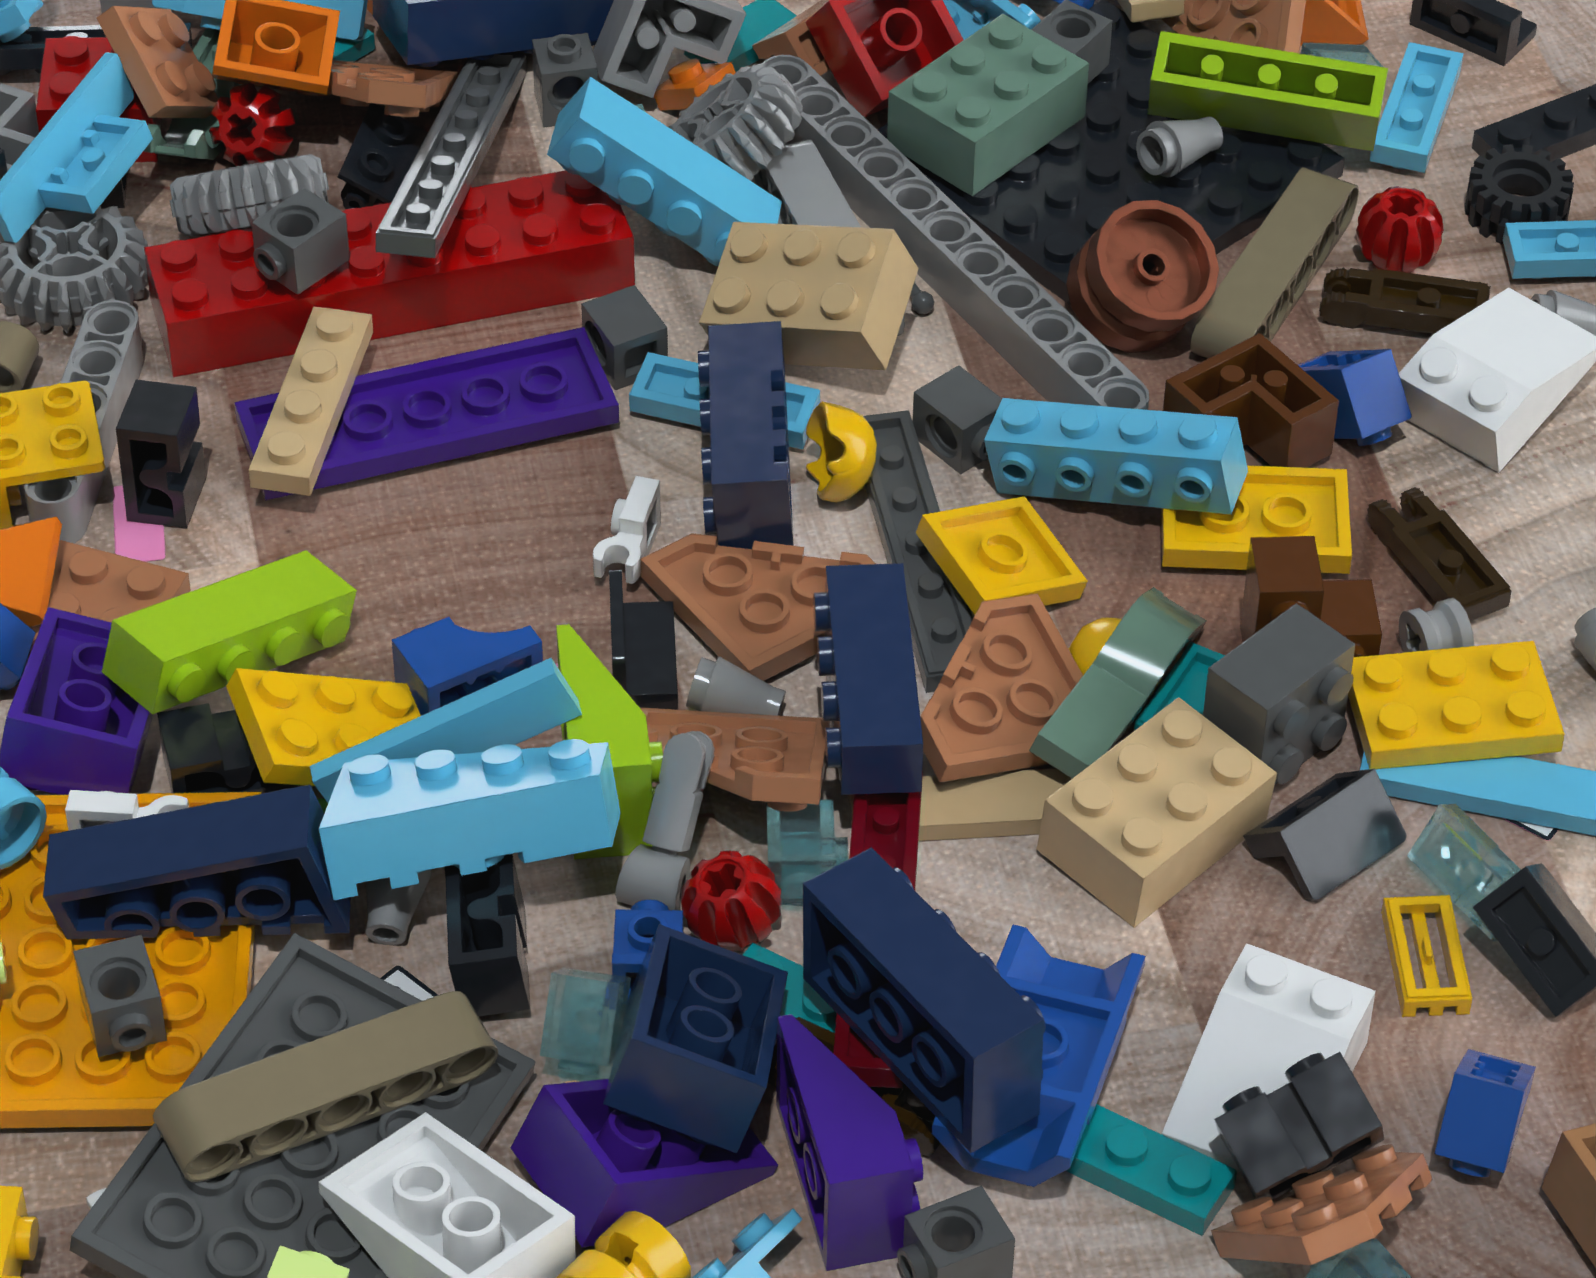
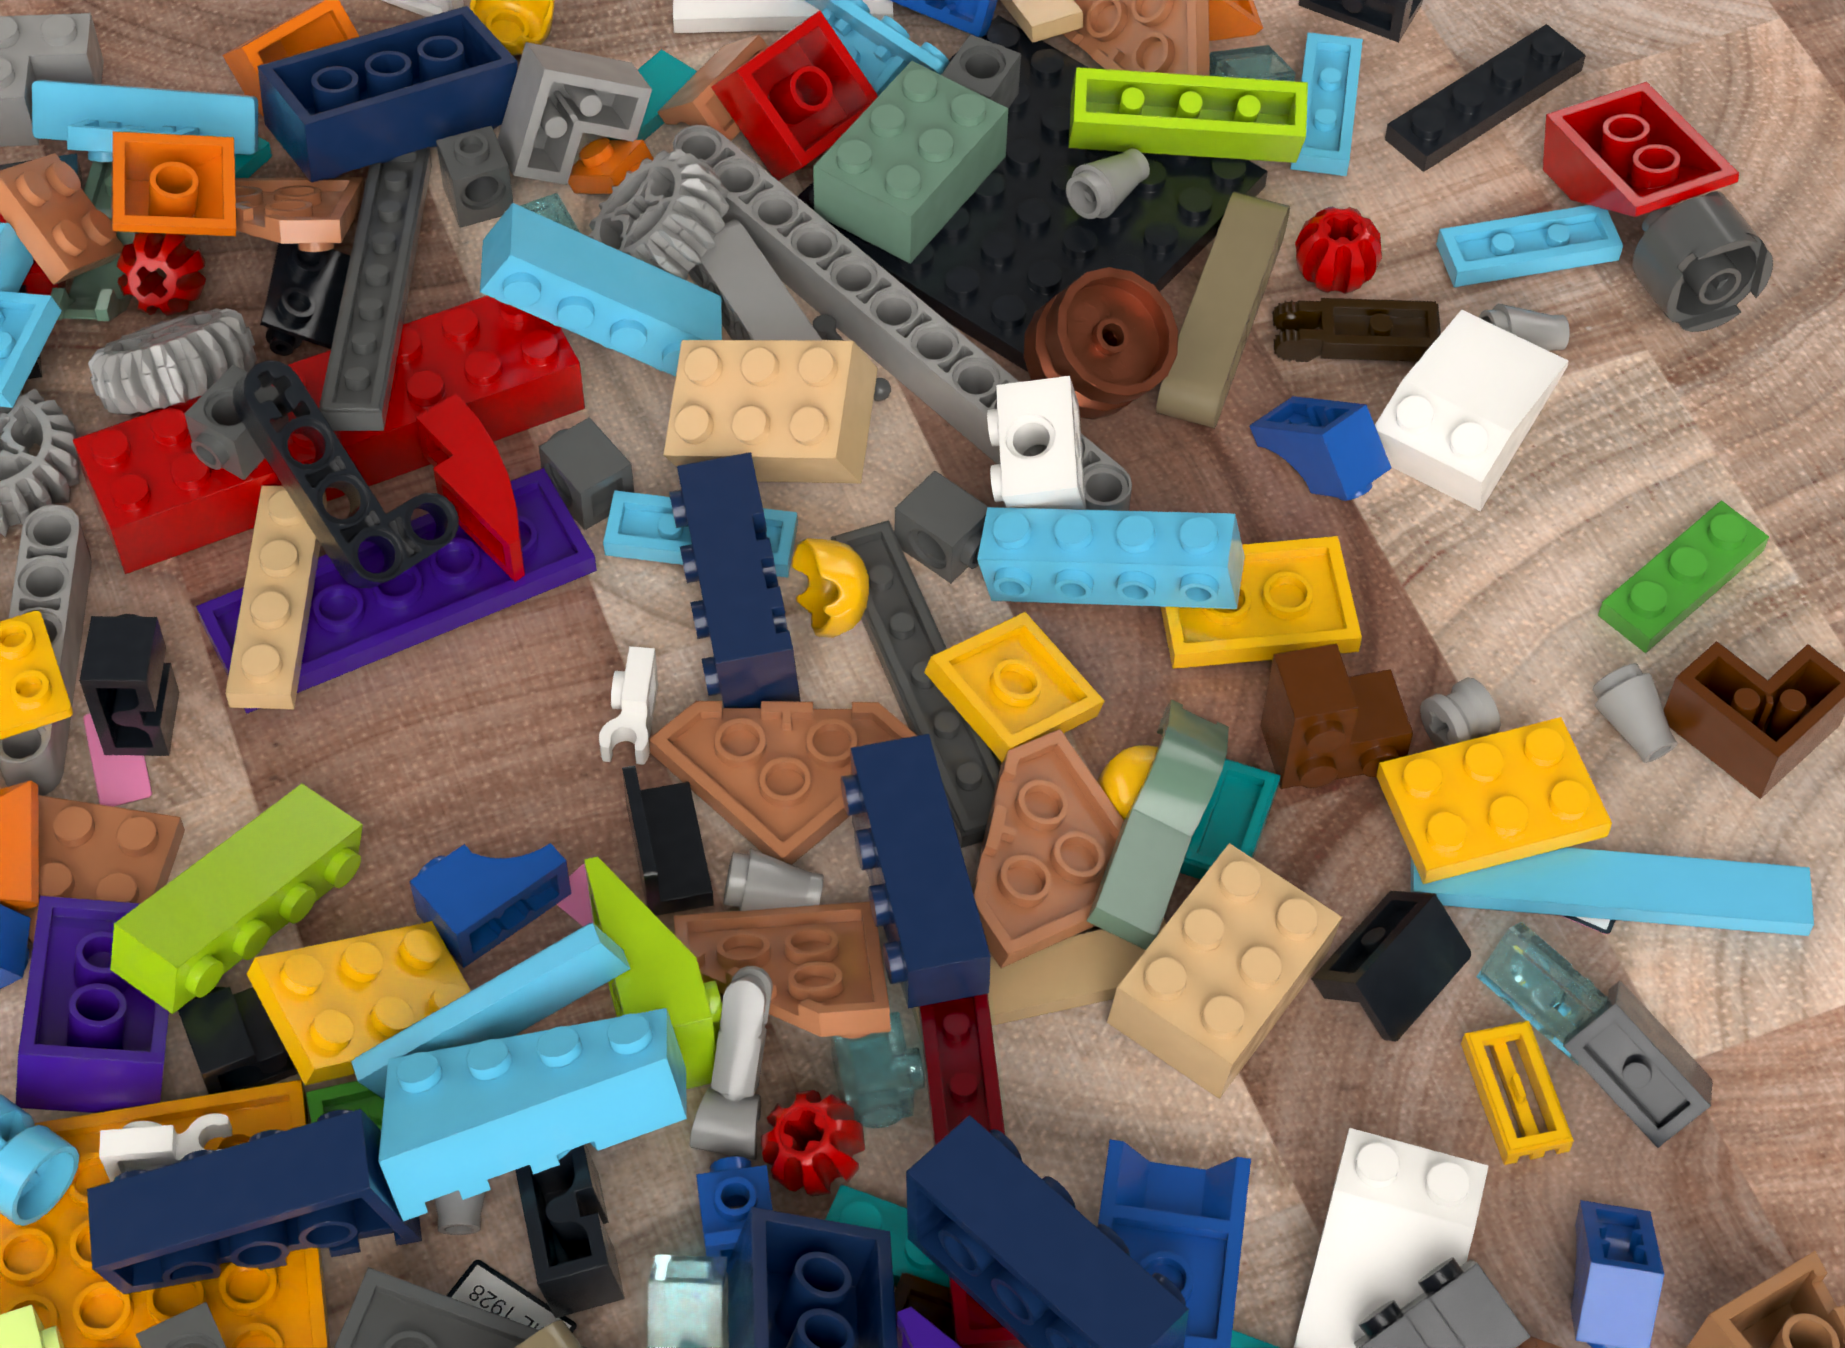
camera: 10 degrees left, 10 degrees up
(383, 288) = (335, 469): none -> black beam
(512, 323) = (473, 480): none -> red slope
(1061, 345) = (1030, 416): none -> white brick
(1276, 402) = (1238, 469): reddish brown brick -> none
(1283, 691) = (1330, 819): dark grey brick -> none
(1439, 554) = (1444, 620): dark brown hinge -> none
(1520, 173) = (1443, 169): black tyre -> none

